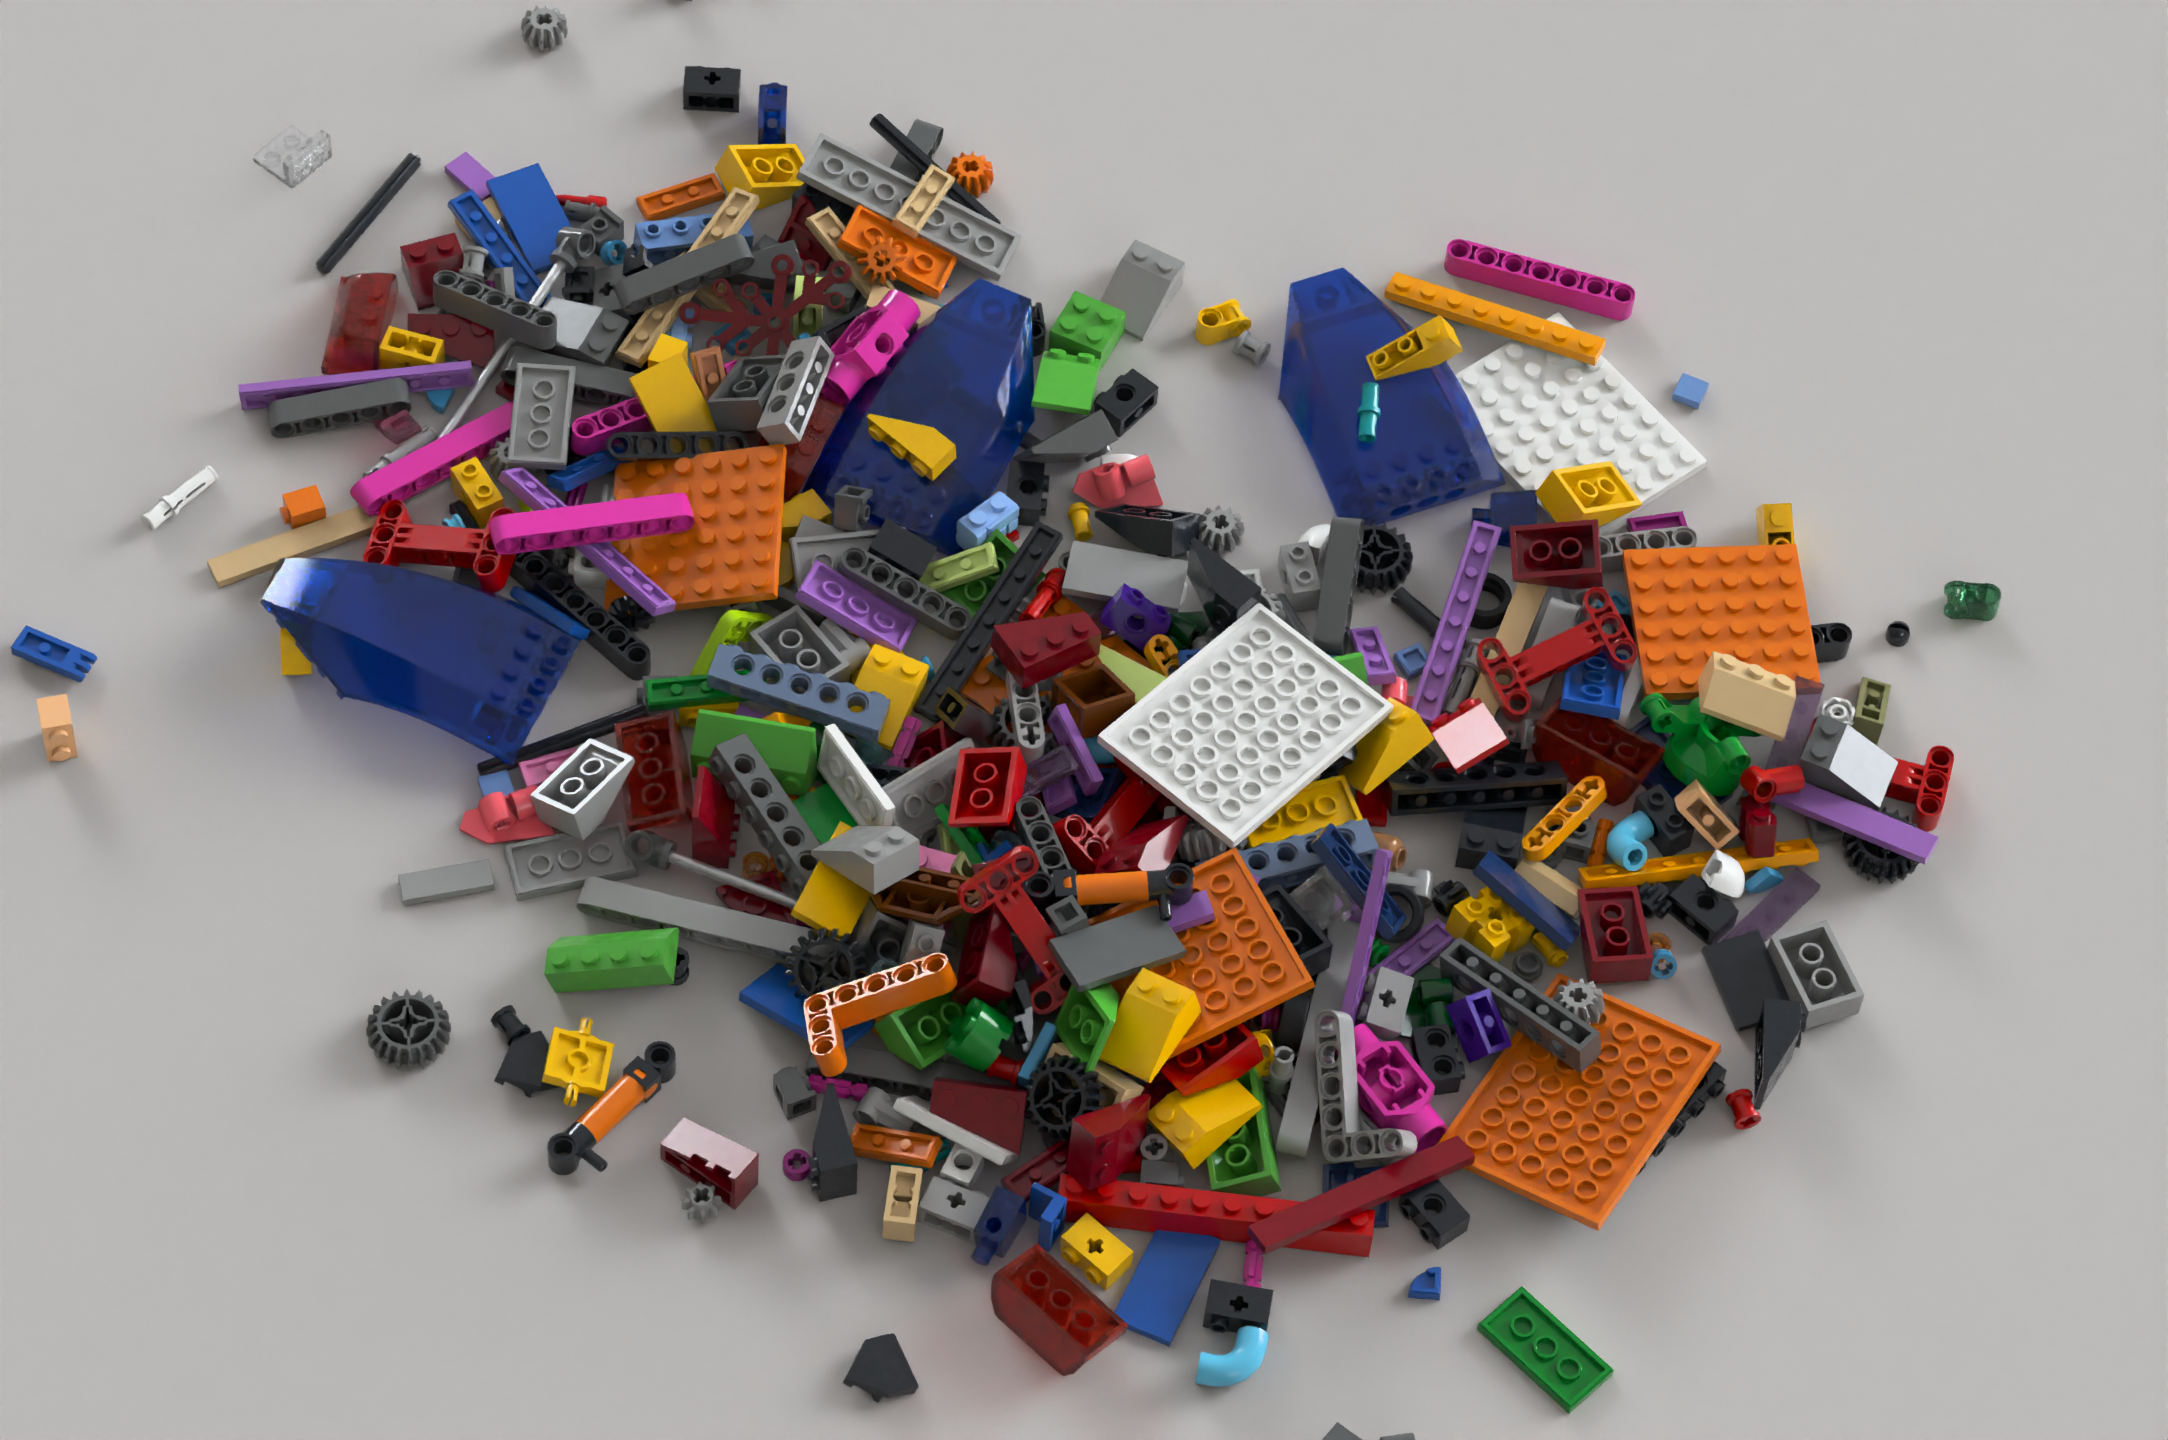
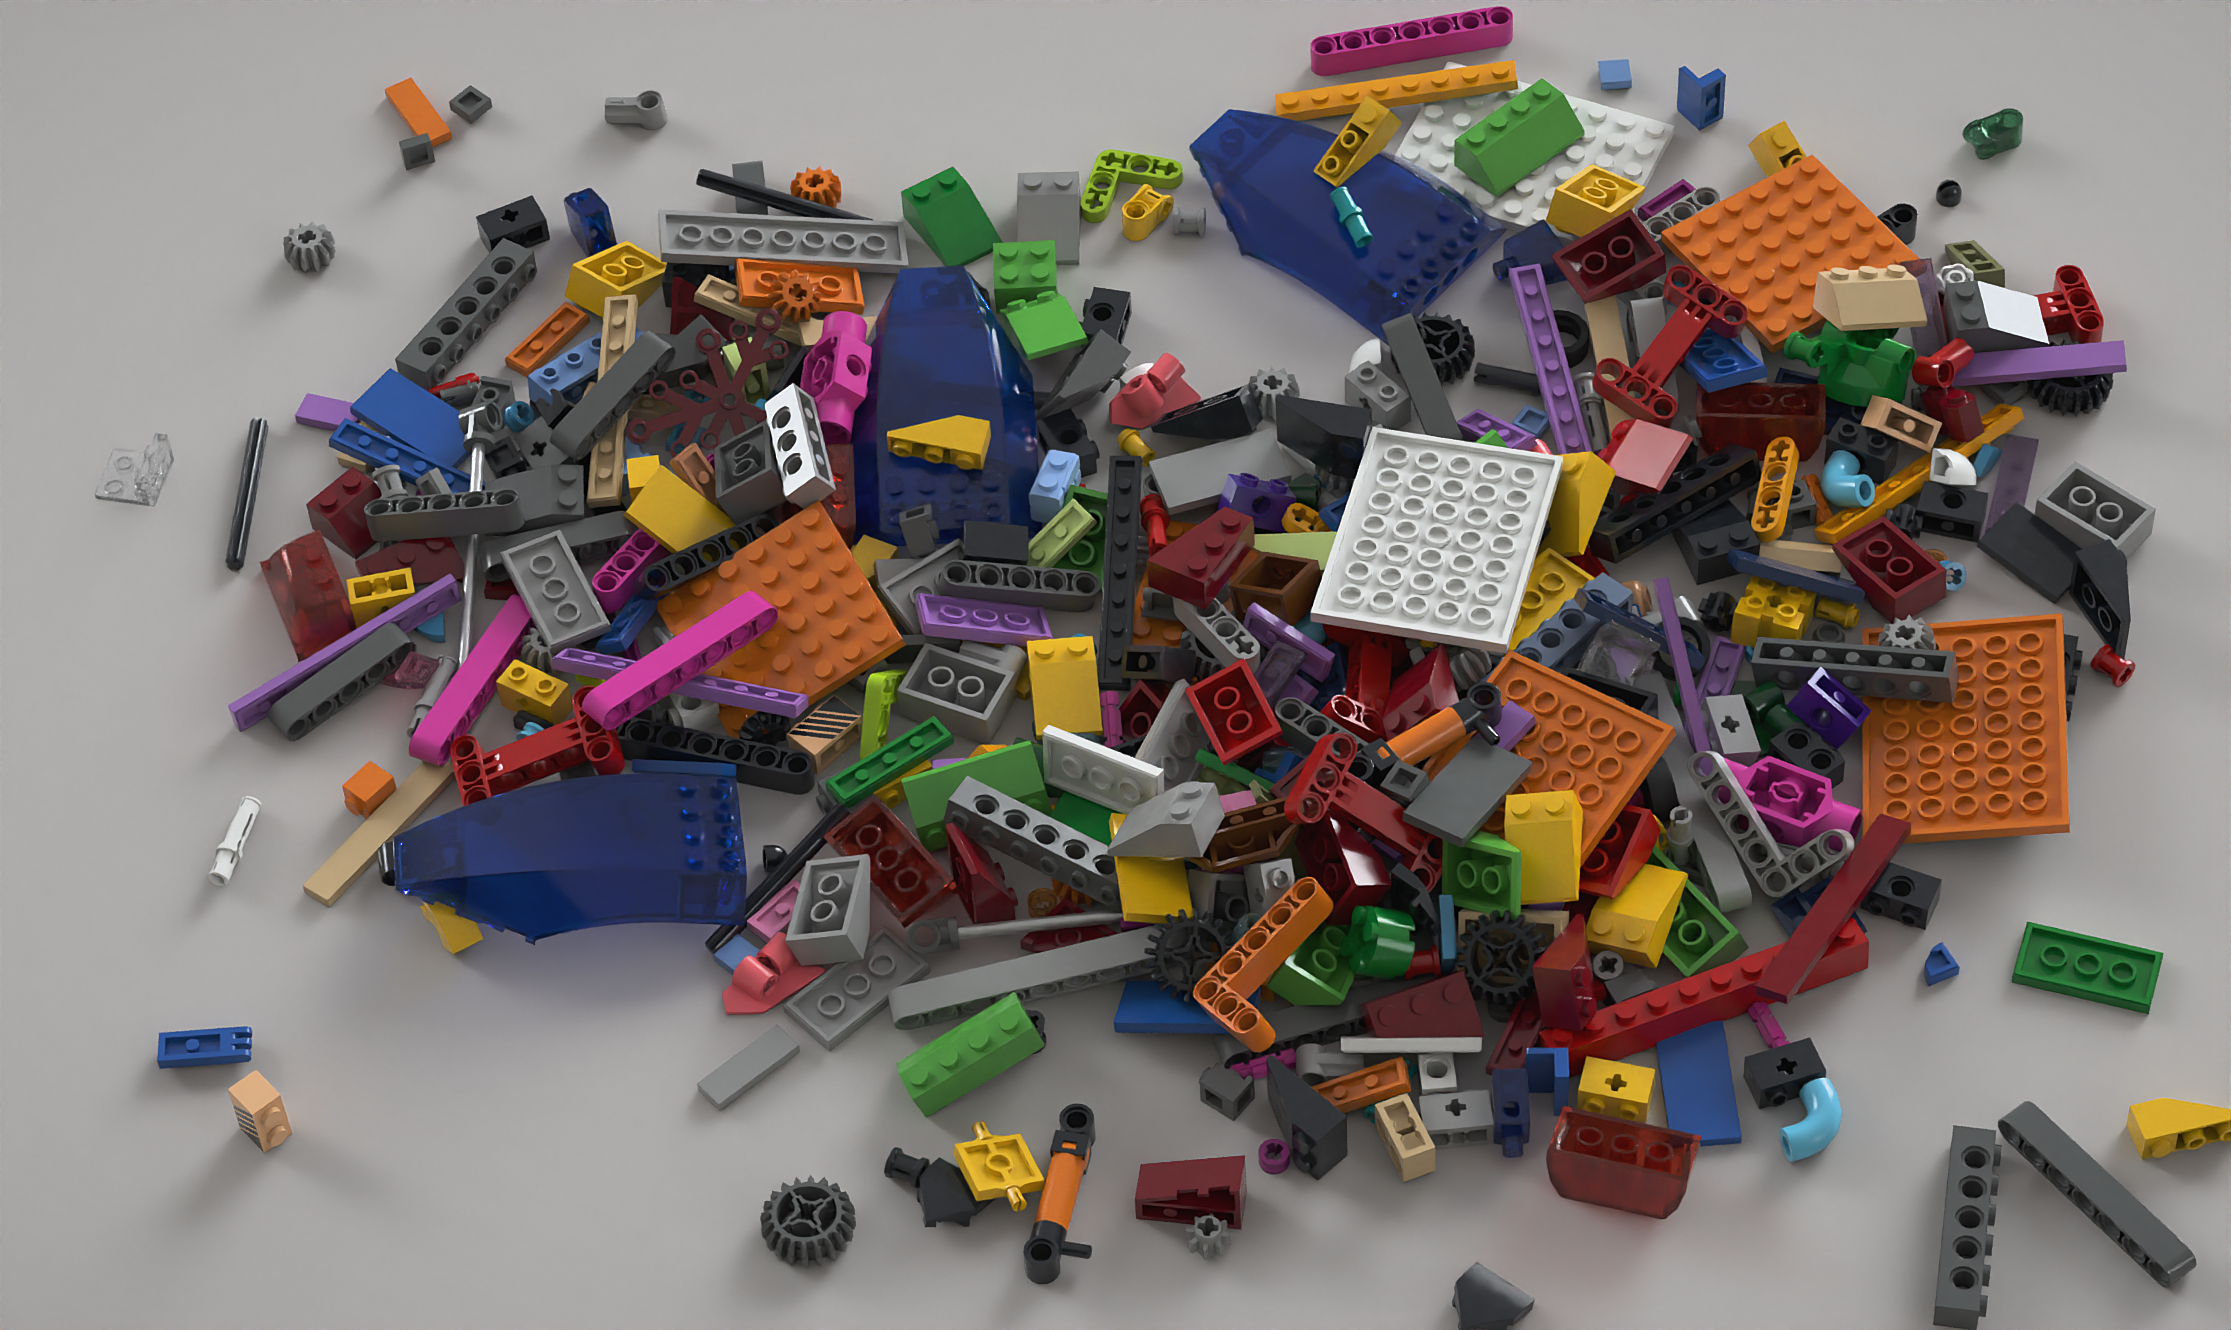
camera: 20 degrees left, 5 degrees down
(574, 719) = (772, 856): none -> black hinge
(629, 146) = (467, 314): none -> dark grey brick
(677, 639) = (826, 733): none -> light nougat brick
(808, 705) = (973, 730): sand blue brick -> none
(877, 35) = (644, 109): none -> light grey piece
(923, 201) = (795, 229): tan tile -> none
(1060, 252) = (949, 218): none -> green slope
(1220, 278) = (1116, 173): none -> lime beam
(1563, 409) = (1517, 138): none -> bright green slope
(1742, 448) = (1701, 98): none -> blue panel

